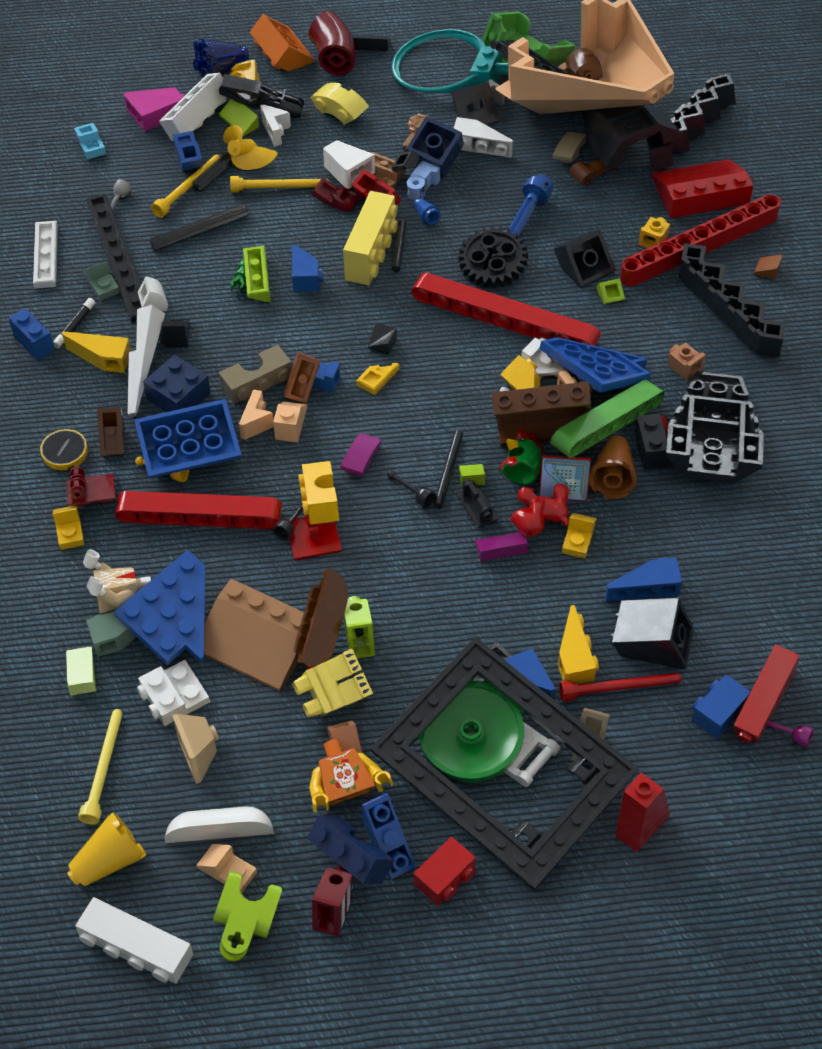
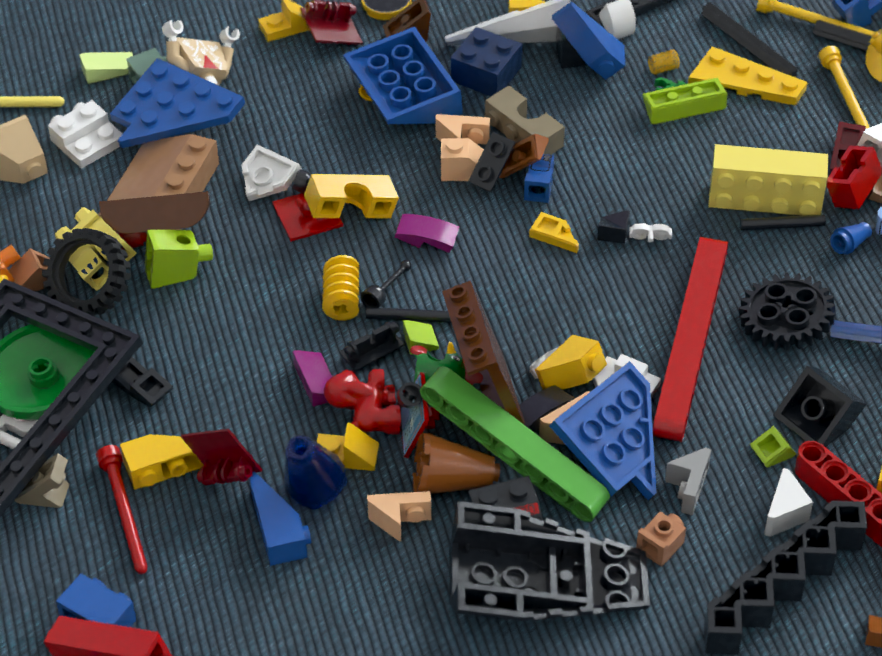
camera: 80 degrees right, 5 degrees down
(190, 309) = (591, 40): none -> blue slope
(198, 510) = (319, 110): red beam -> none
(212, 278) = (665, 61): none -> yellow piece
(228, 245) = (748, 77): none -> yellow wing
(266, 554) = (267, 173): none -> white plate
(305, 271) = (698, 136): blue slope -> none
(308, 393) = (492, 161): none -> black hinge
(393, 316) = (655, 231): none -> white piece
(399, 685) = (116, 274): none -> black tyre
(416, 514) = (341, 288): none -> yellow piece
(531, 667) = (125, 418): blue slope -> none
(563, 468) = (411, 392): none -> black hinge
(588, 610) = (222, 457): none -> dark red hinge
(610, 548) = (312, 472): none -> clear blue cone
(635, 332) = (689, 474): none -> light grey slope
(648, 507) = (392, 509): none -> light nougat slope
(653, 632) = (194, 533): slope -> none
(665, 291) = (789, 506): none -> white slope

